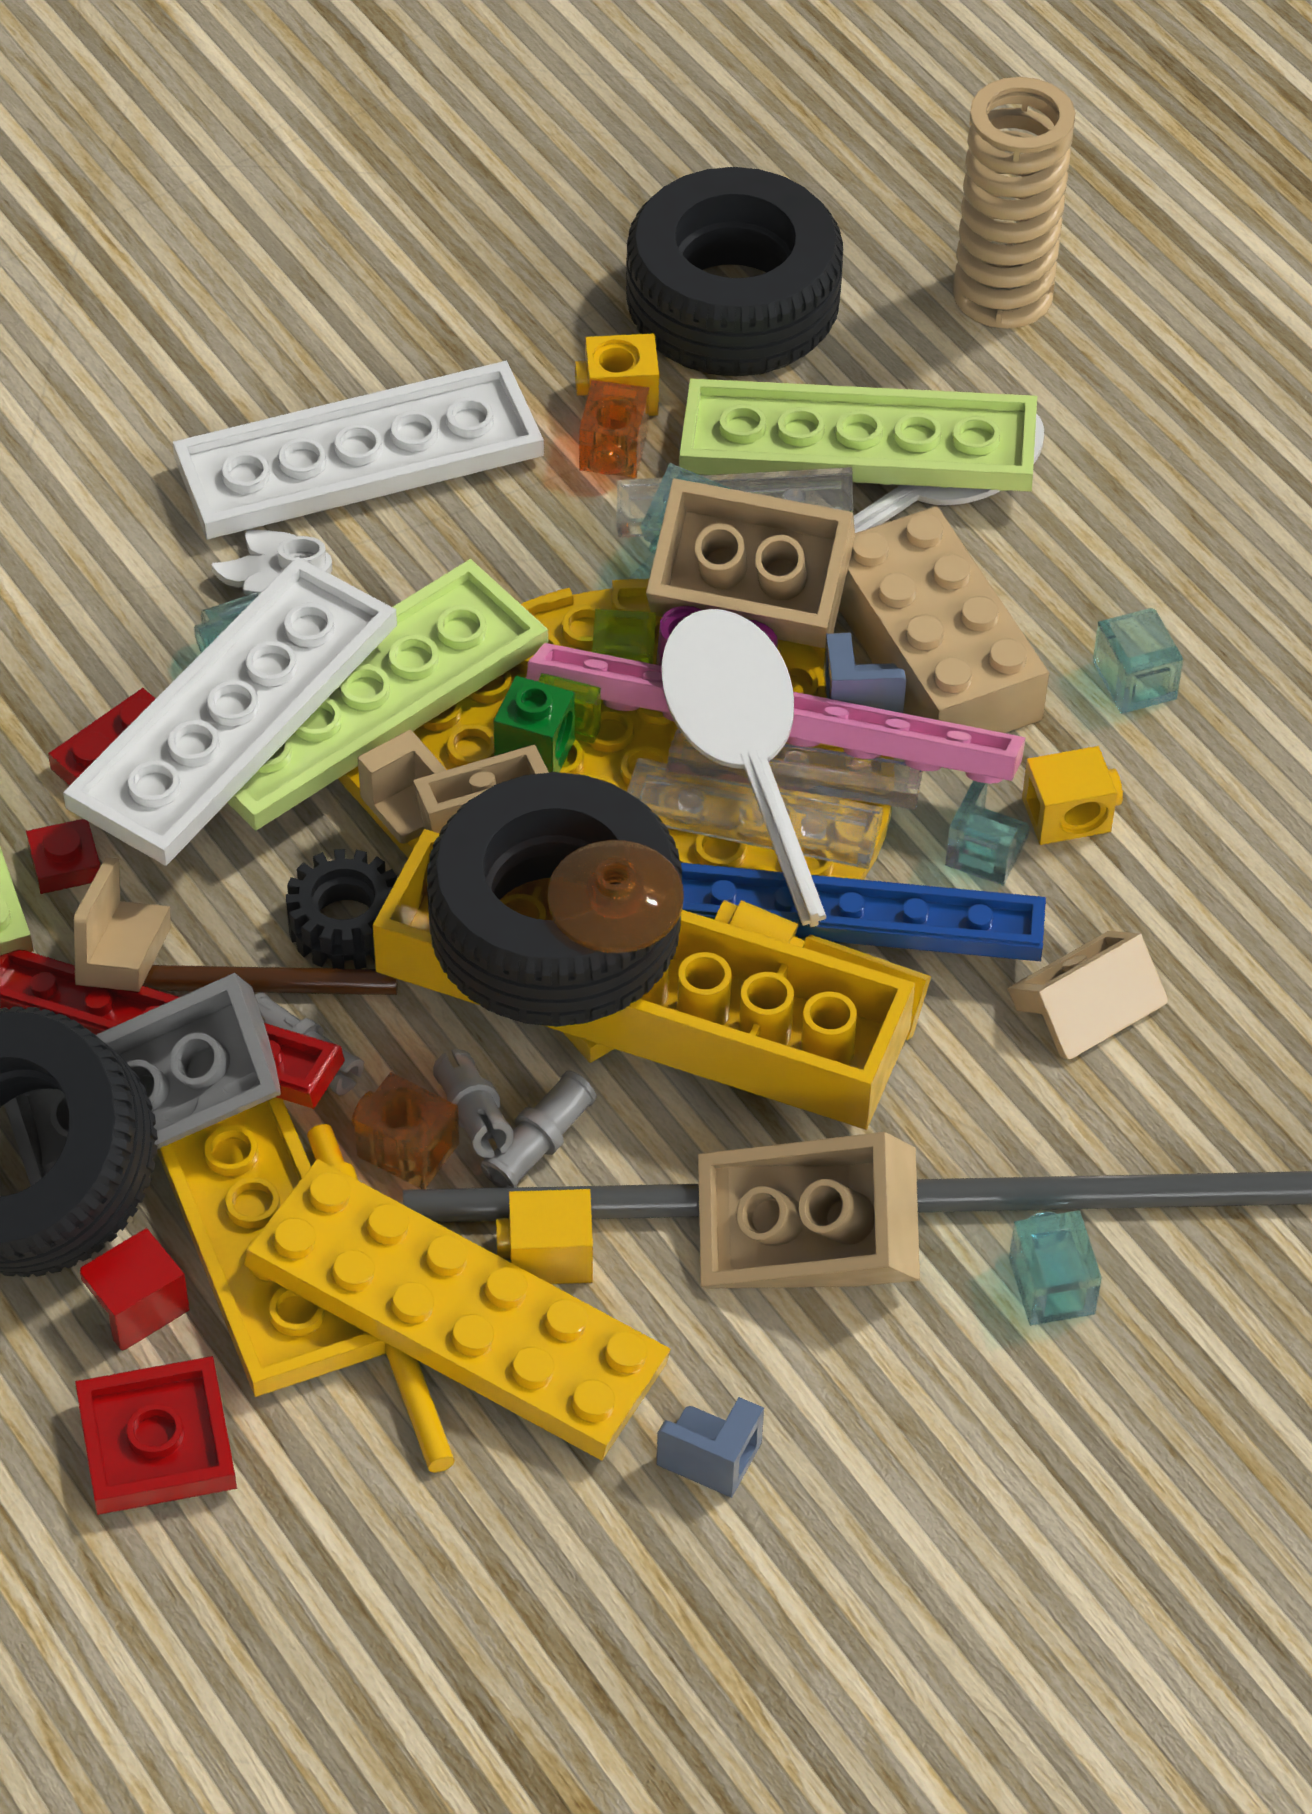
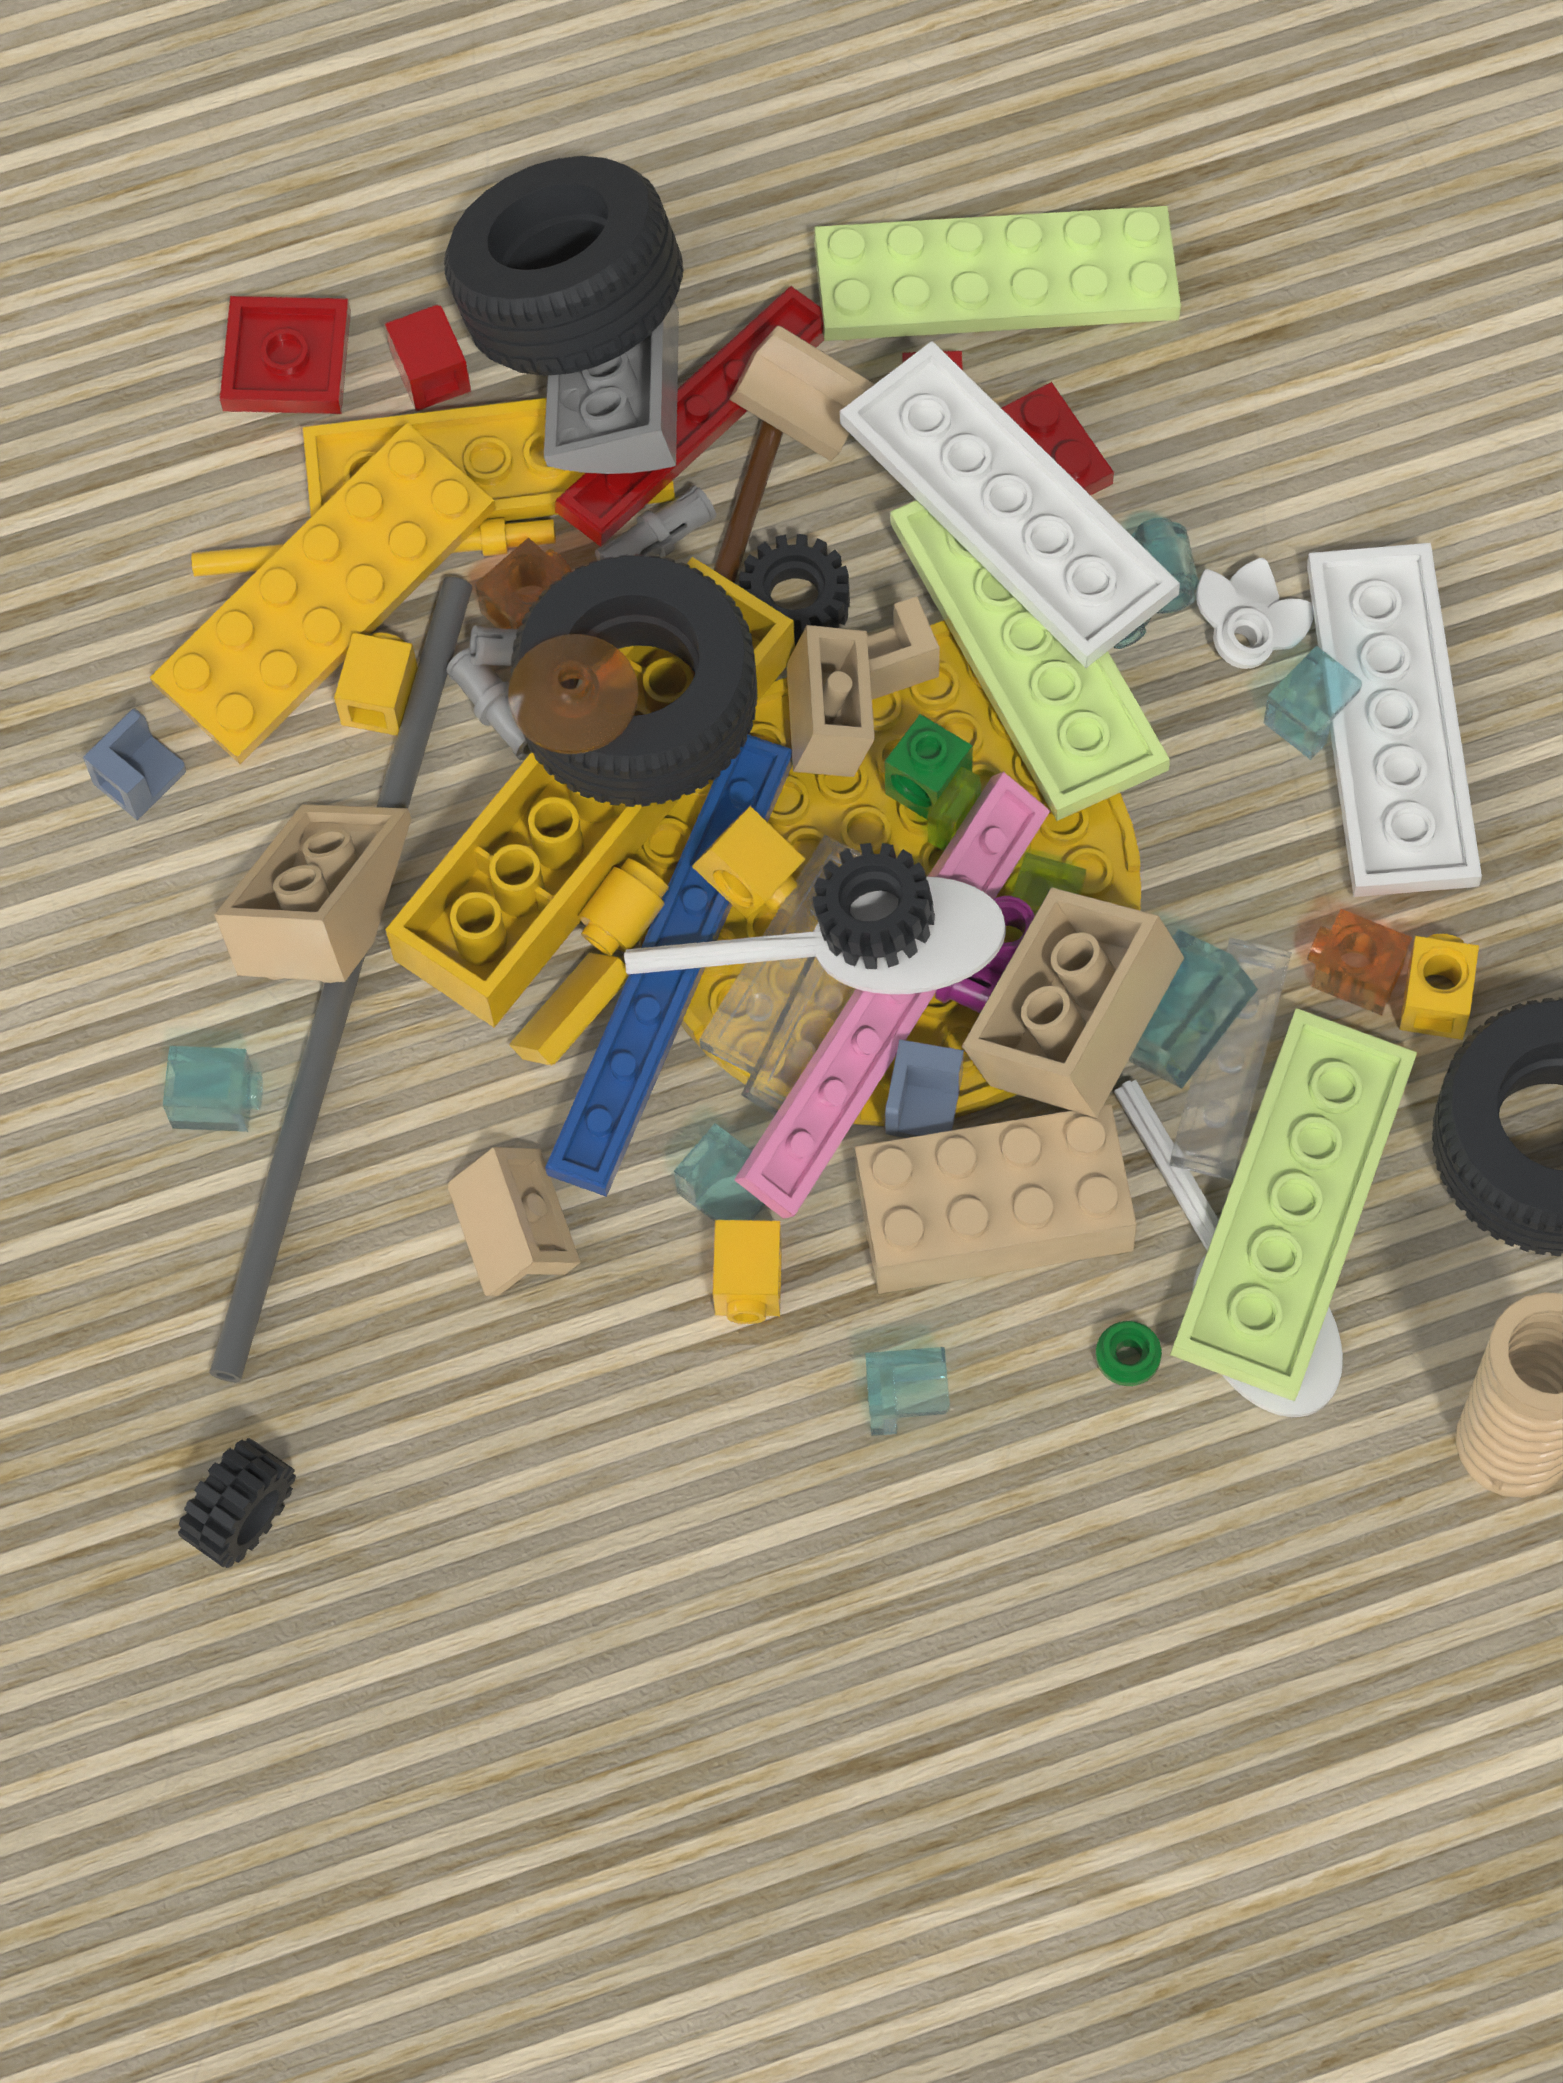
camera: 110 degrees right, 15 degrees up
(361, 500) = (1309, 700): none -> clear light blue panel
(698, 826) = (750, 864): none -> yellow brick
(716, 670) = (865, 875): none -> black tyre
(1034, 527) = (1128, 1335): none -> green plate

